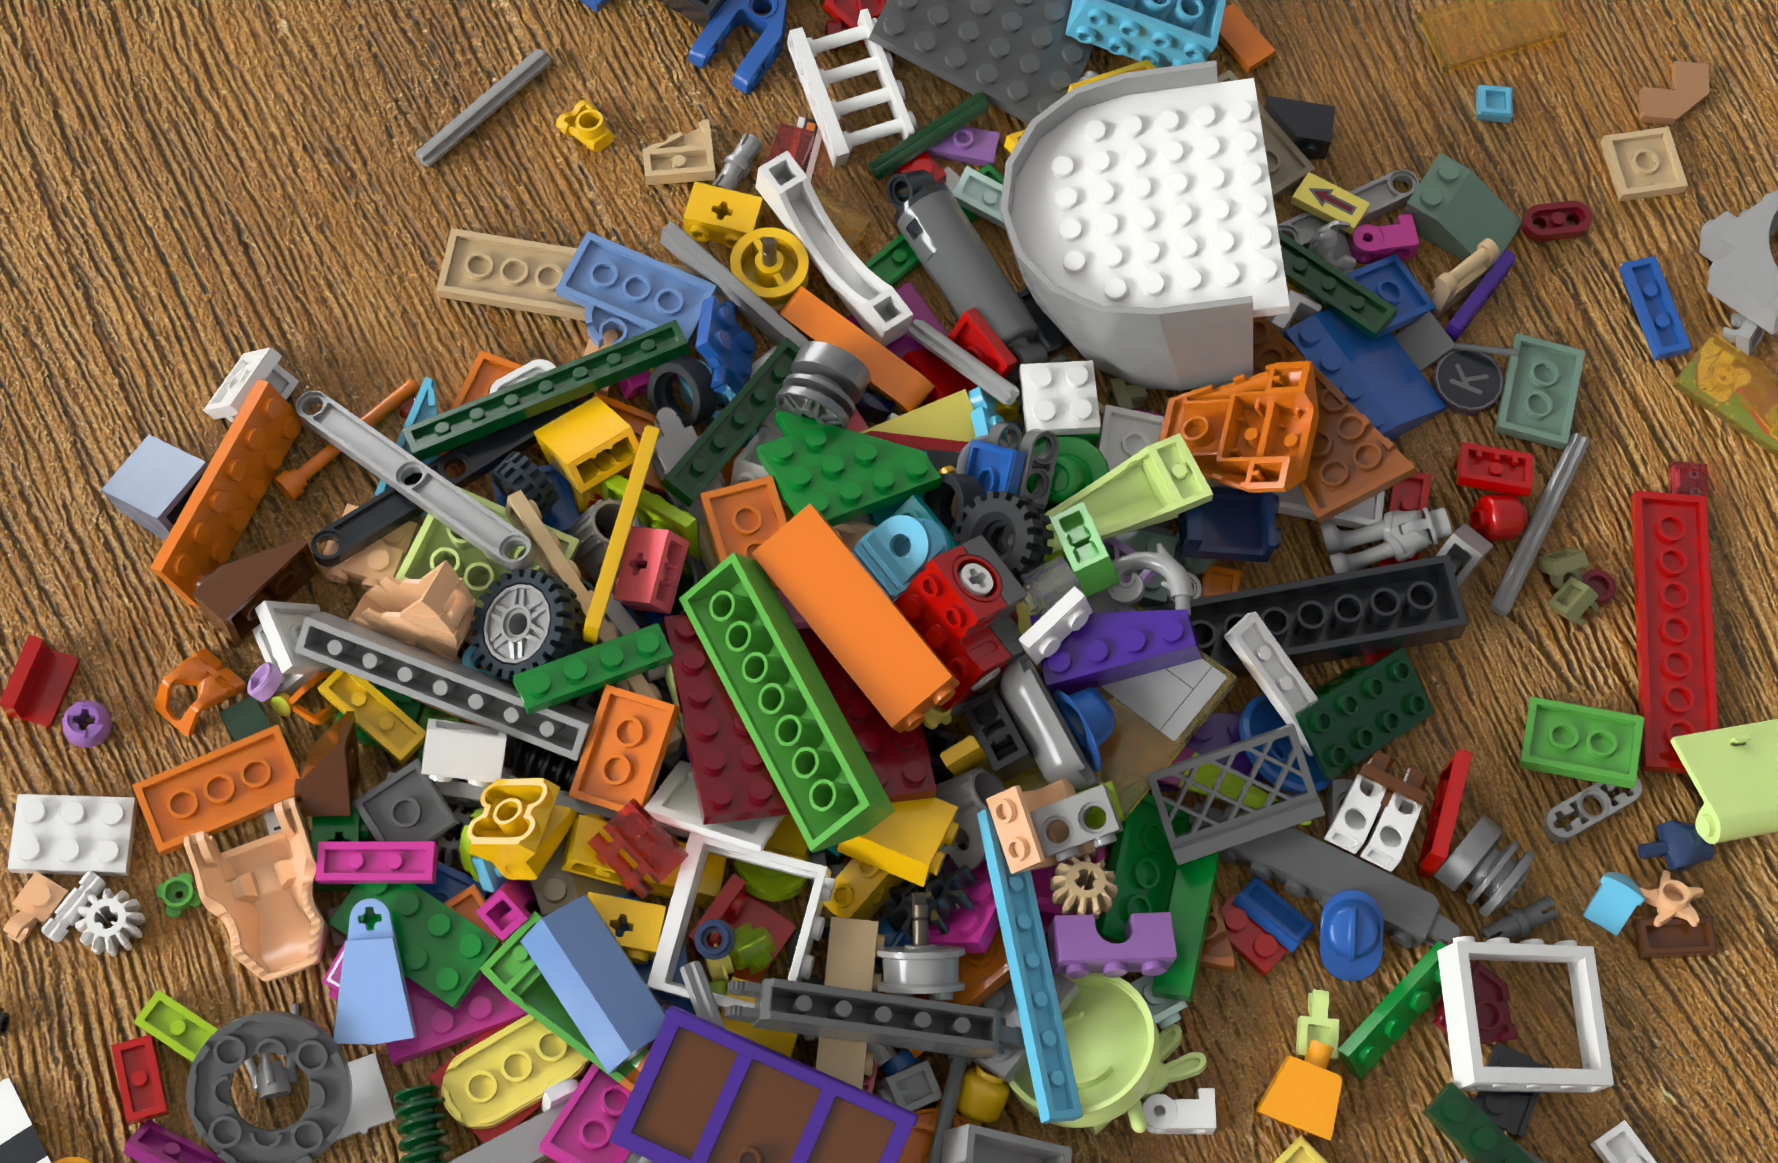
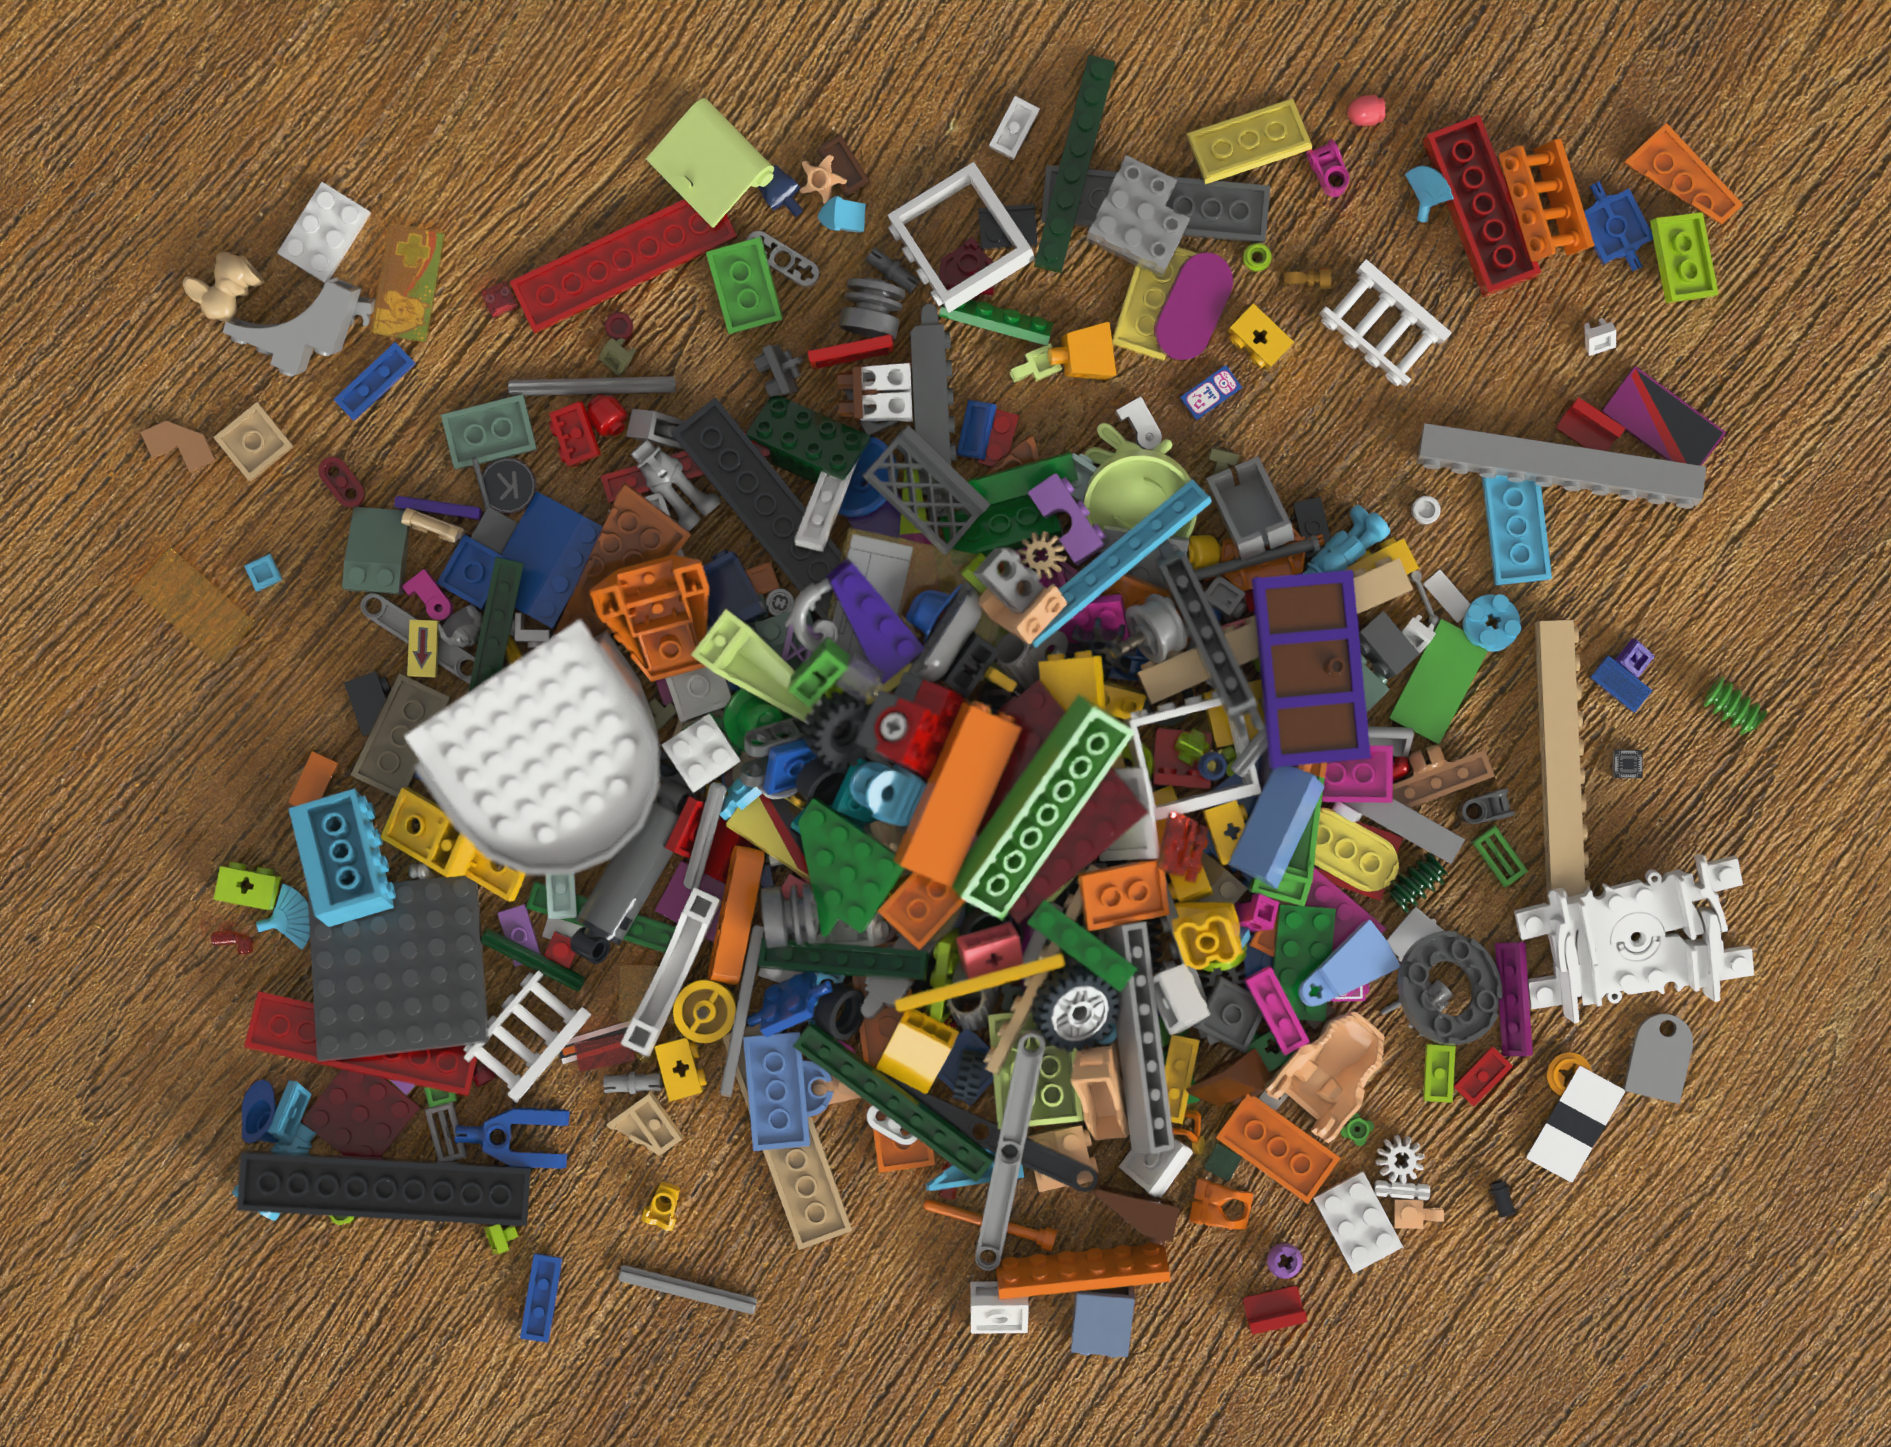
camera: 115 degrees left, 20 degrees up
(264, 682) = (1194, 1164): lavender tile -> none
(1053, 627) = (898, 664): white plate -> none
(1351, 935) = (964, 373): blue piece -> none
(1456, 732) = (783, 367): none -> dark grey hips
(1573, 600) = (642, 337): olive tile -> none

